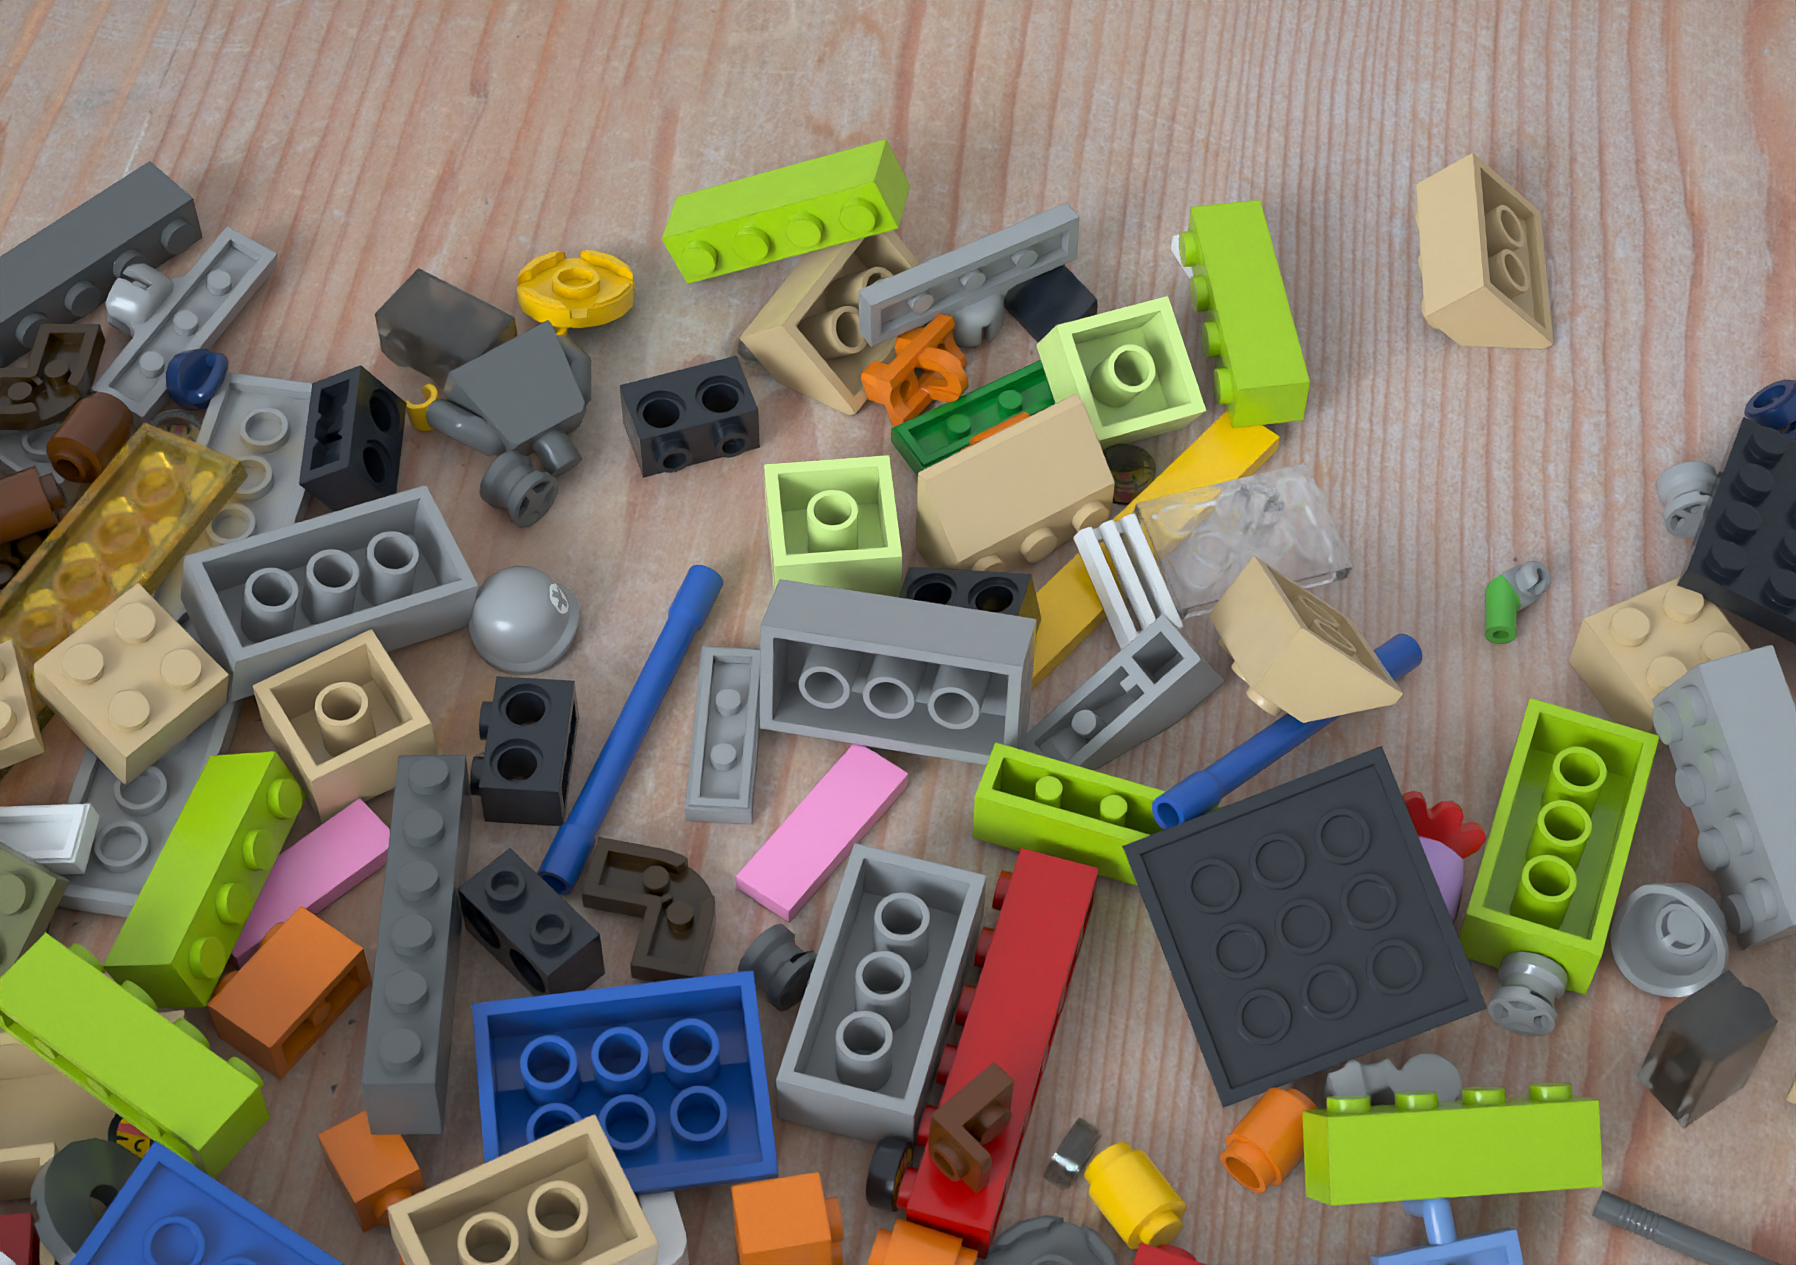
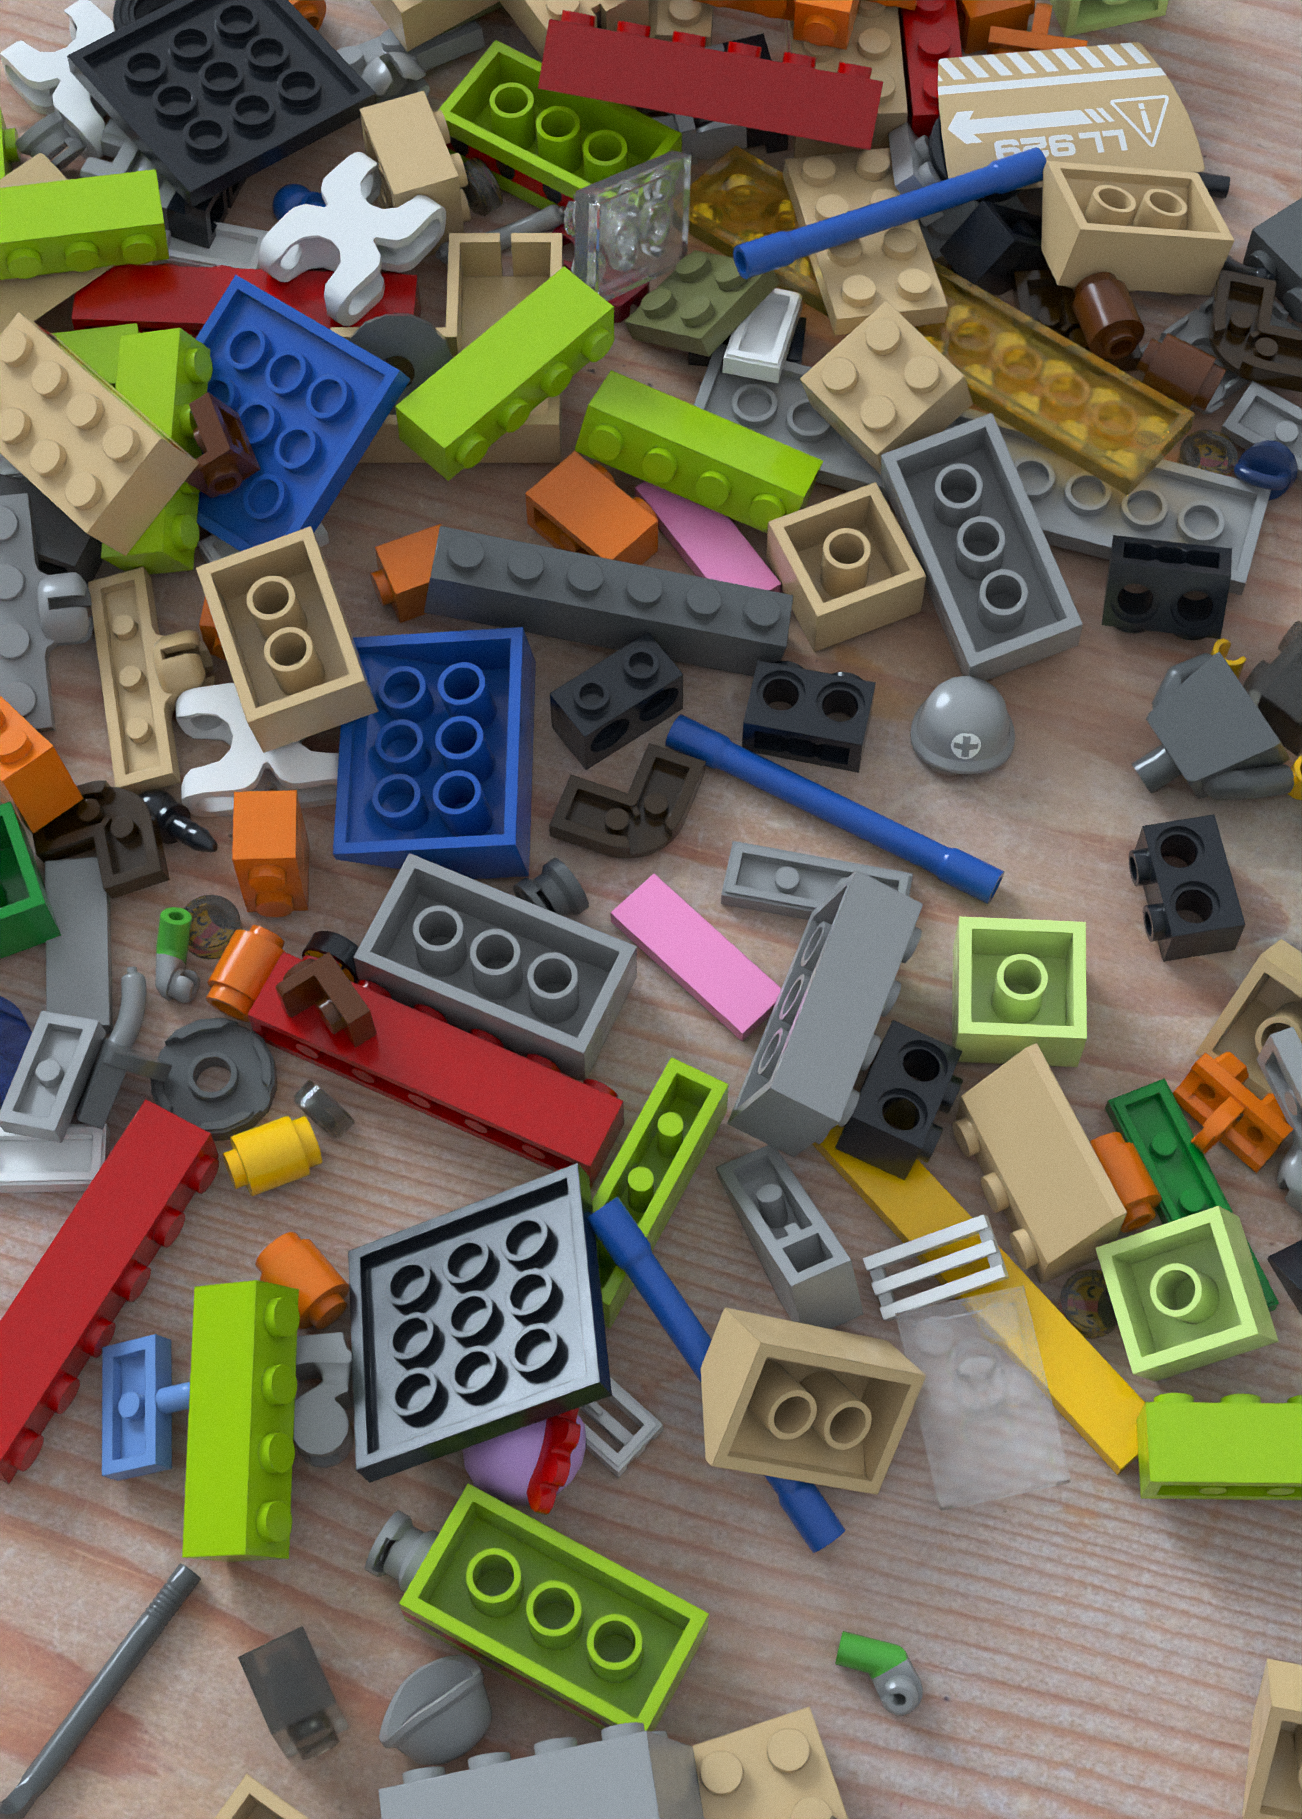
camera: 100 degrees right, 10 degrees up
(518, 488) = (1110, 729): dark grey wheel -> none

